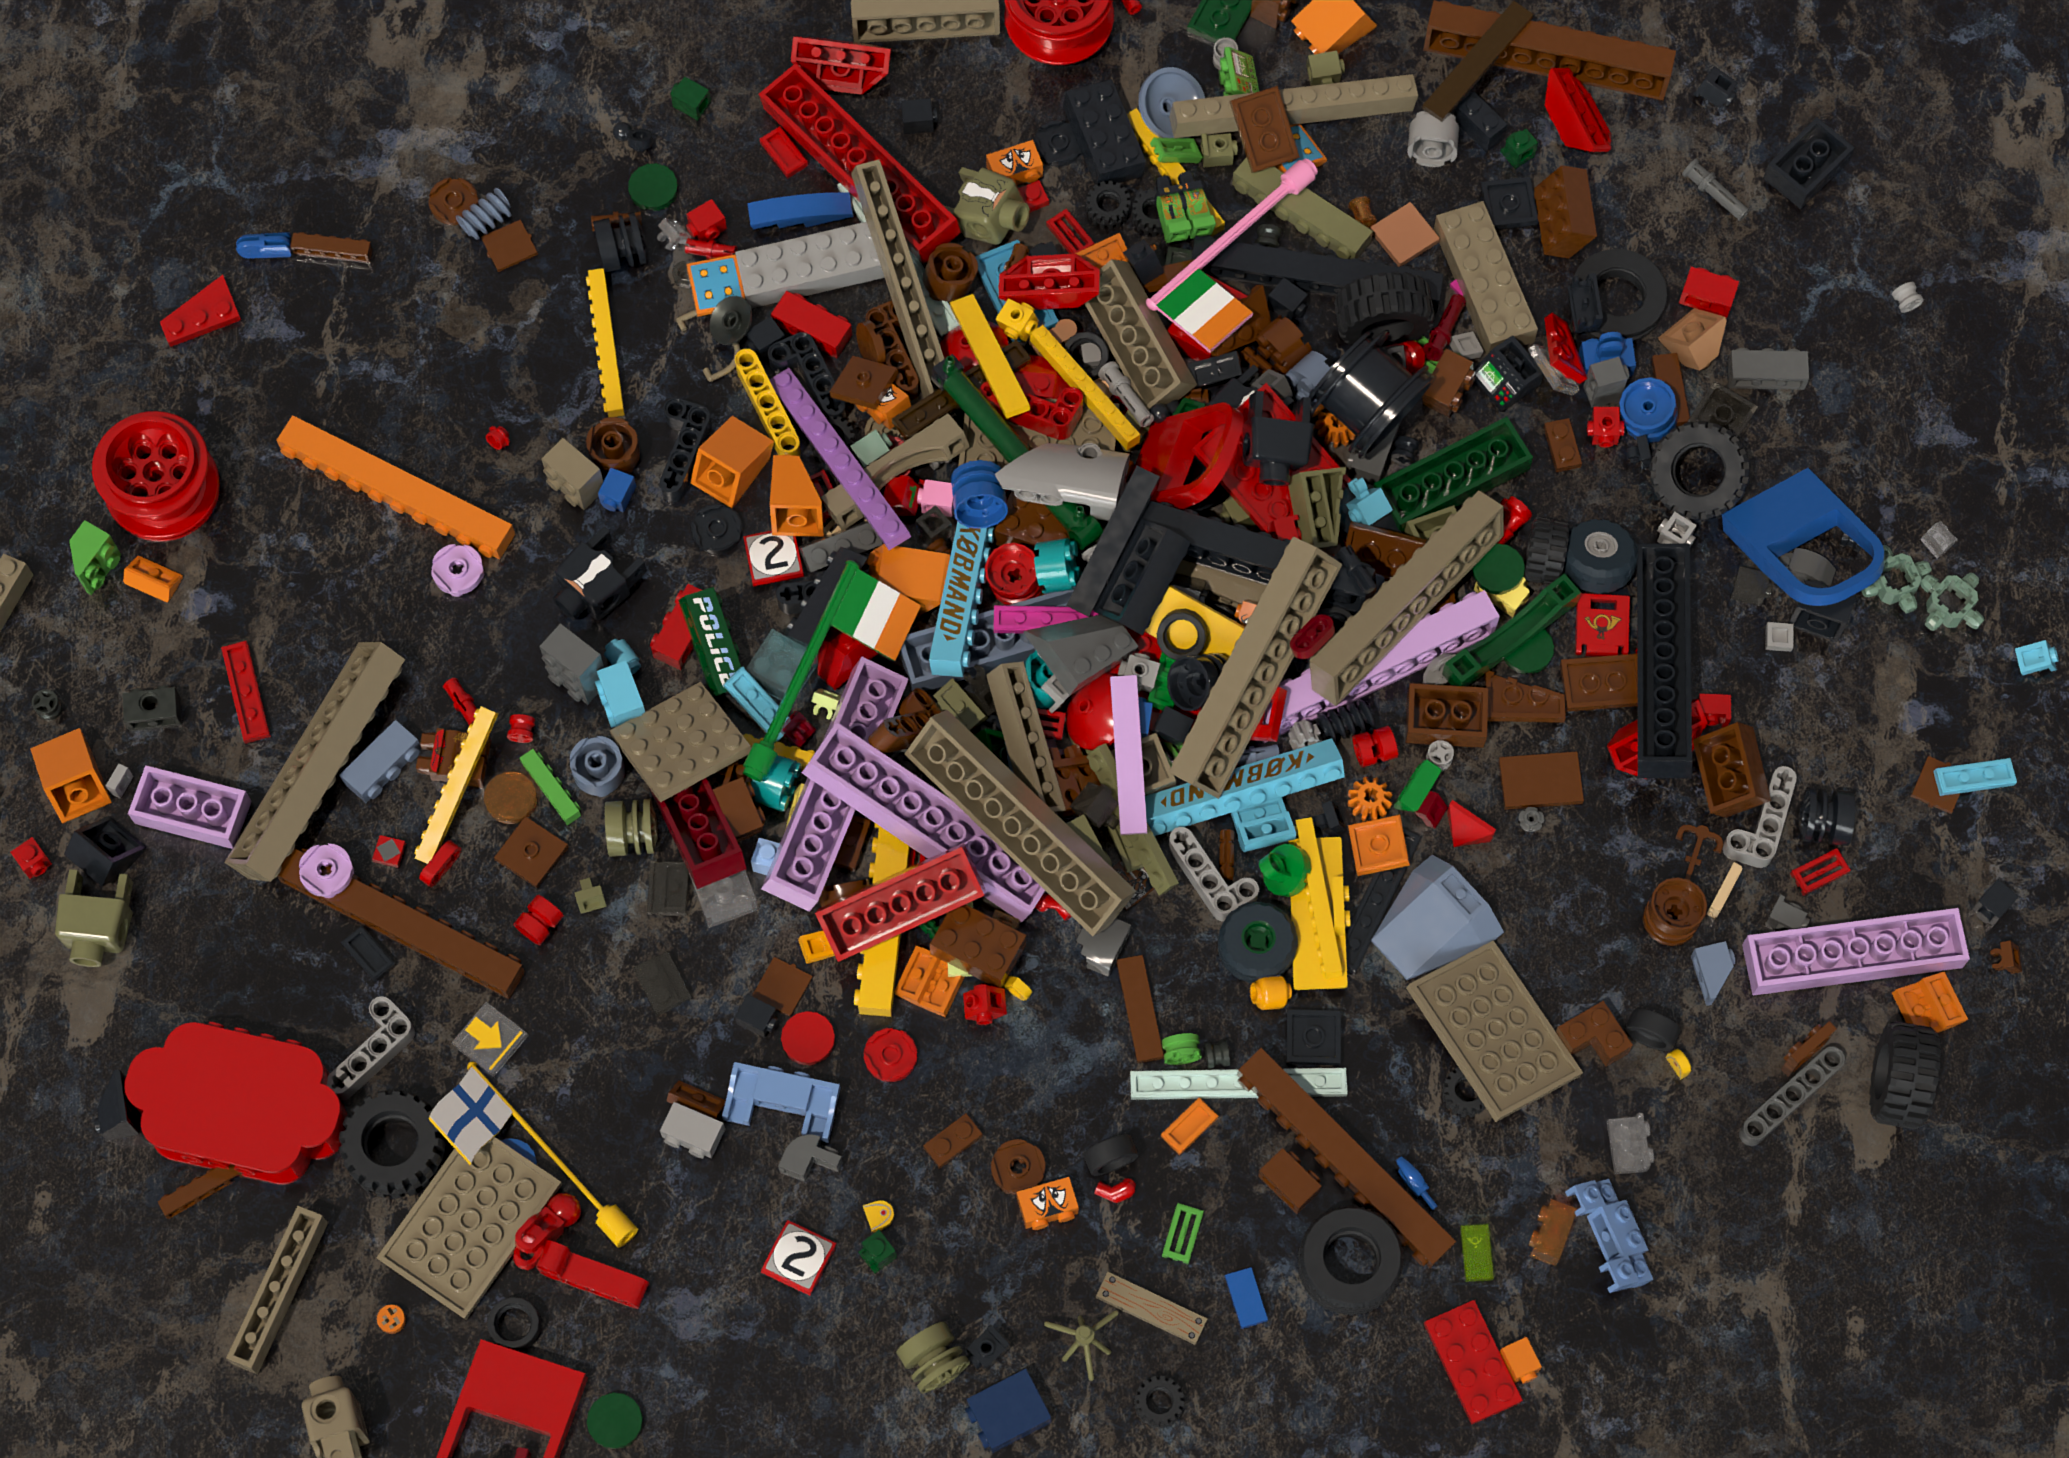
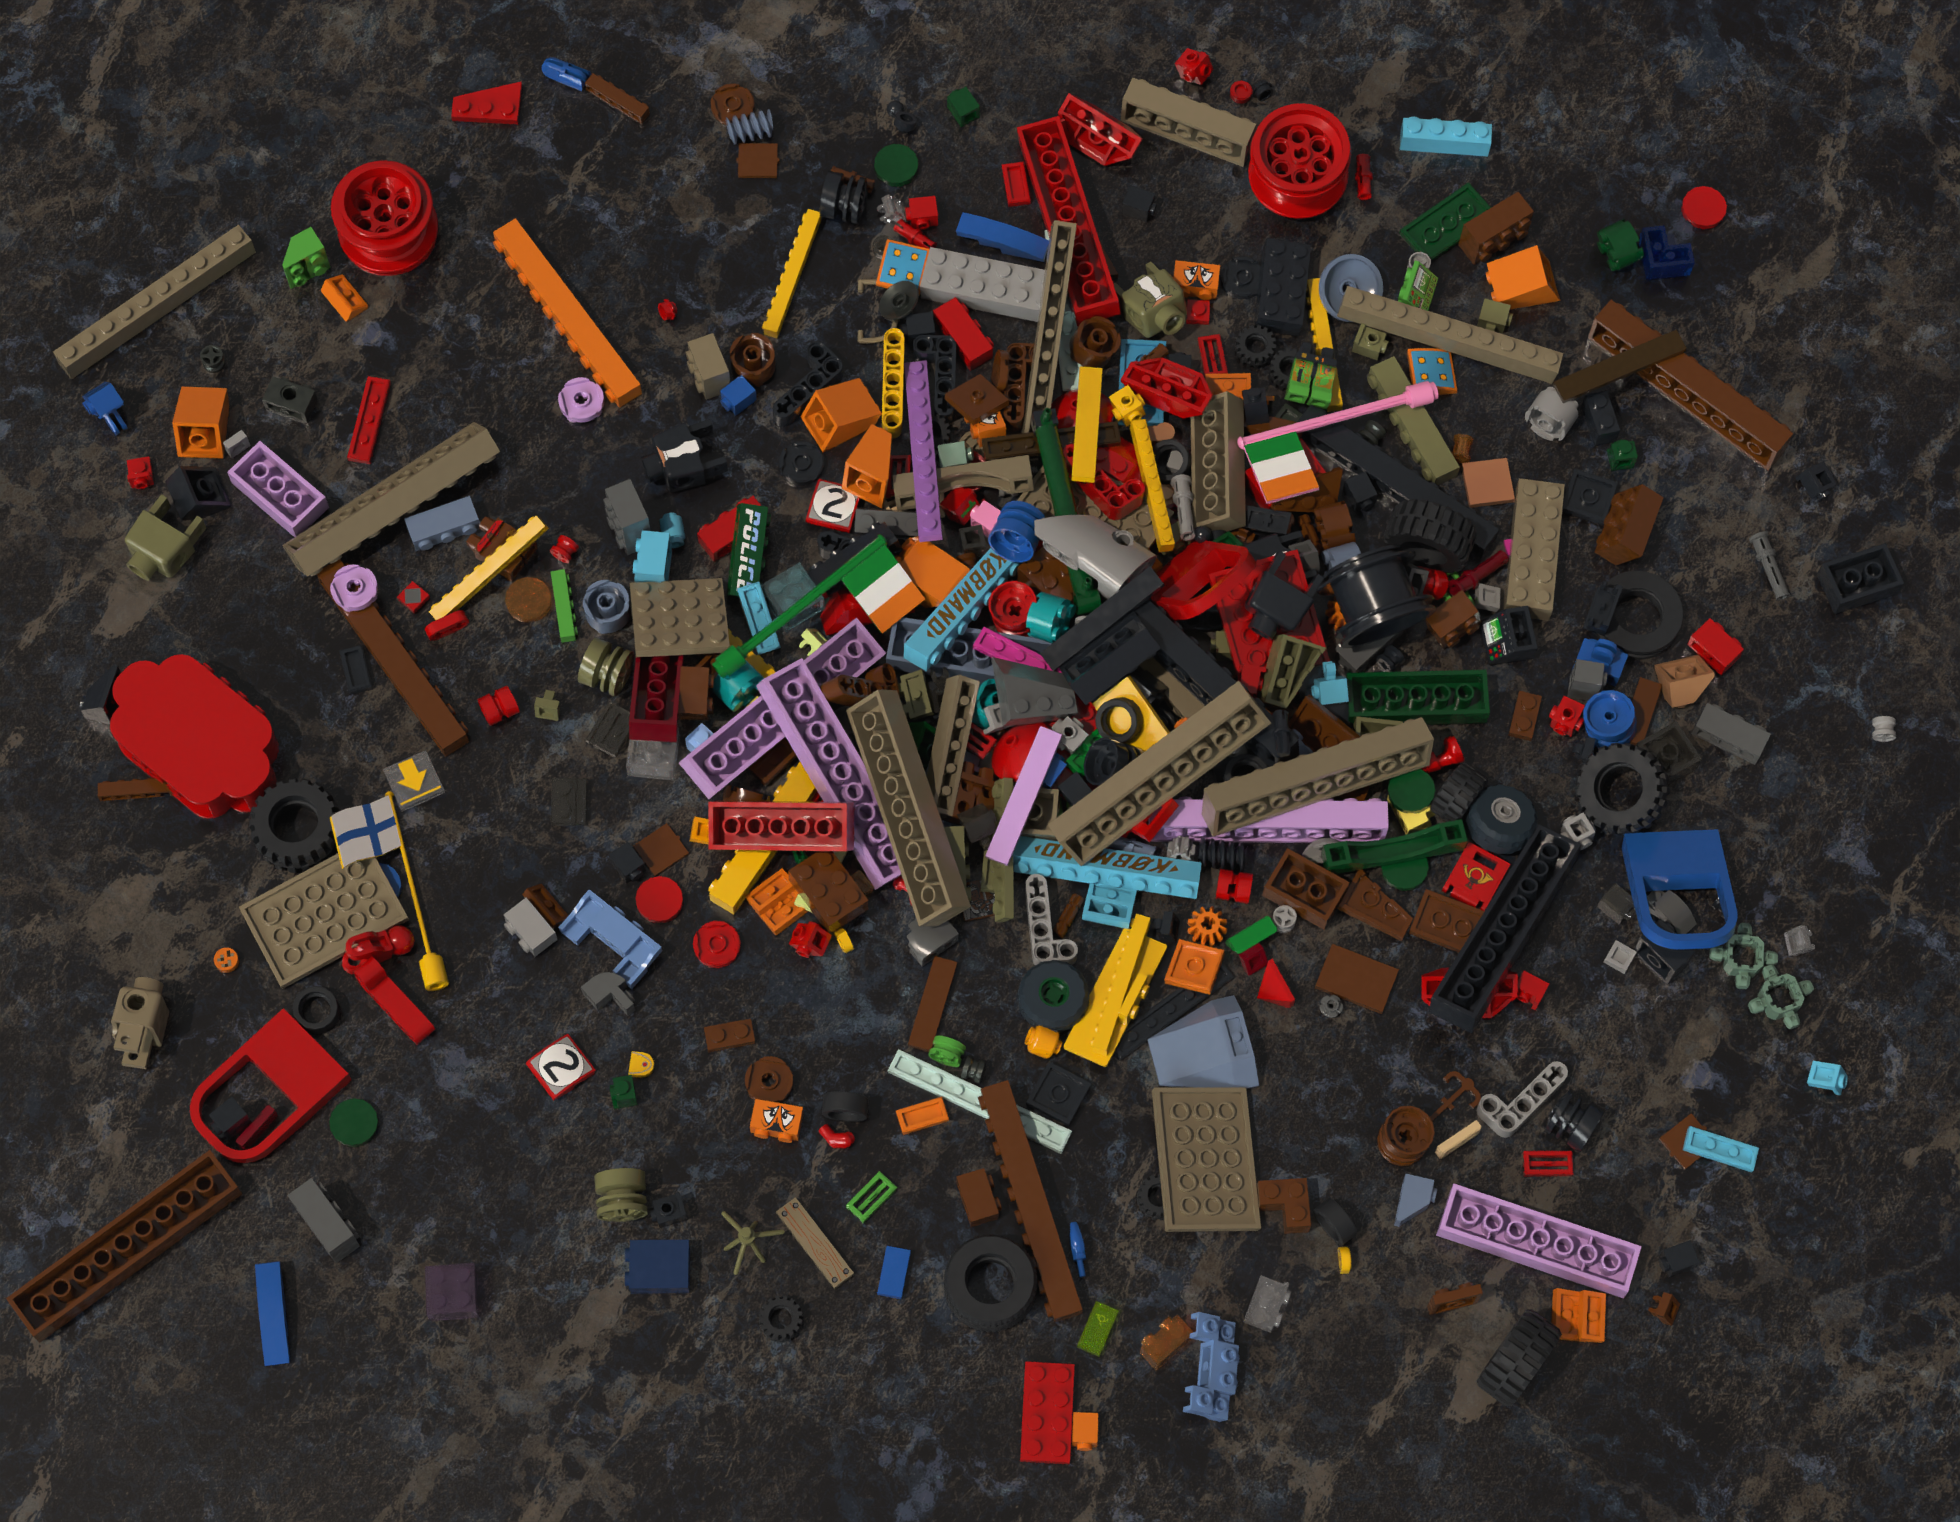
camera: 25 degrees right, 0 degrees up
(277, 1290) = (151, 894): dark tan brick -> none
(366, 1052) = (315, 743): light grey beam -> none
(462, 701) = (530, 506): red pin -> none
(531, 852) = (522, 650): reddish brown plate -> none
(797, 729) = (779, 652): dark red tile -> none
(1179, 151) = (1333, 330): bright green tile -> none
(1264, 129) = (1412, 342): reddish brown tile -> none
(1285, 870) = (1105, 949): green tile -> none
(1312, 636) = (1217, 770): dark red plate -> none
(1554, 376) = (1548, 650): clear tile -> none
(1562, 349) = (1564, 636): red wing -> none
(1575, 113) = (1685, 447): red wedge -> none
(1731, 770) = (1515, 1044): reddish brown brick -> none
(1786, 916) = (1498, 1185): dark grey brick -> none
(1800, 1087) = (1431, 1323): dark grey beam -> none

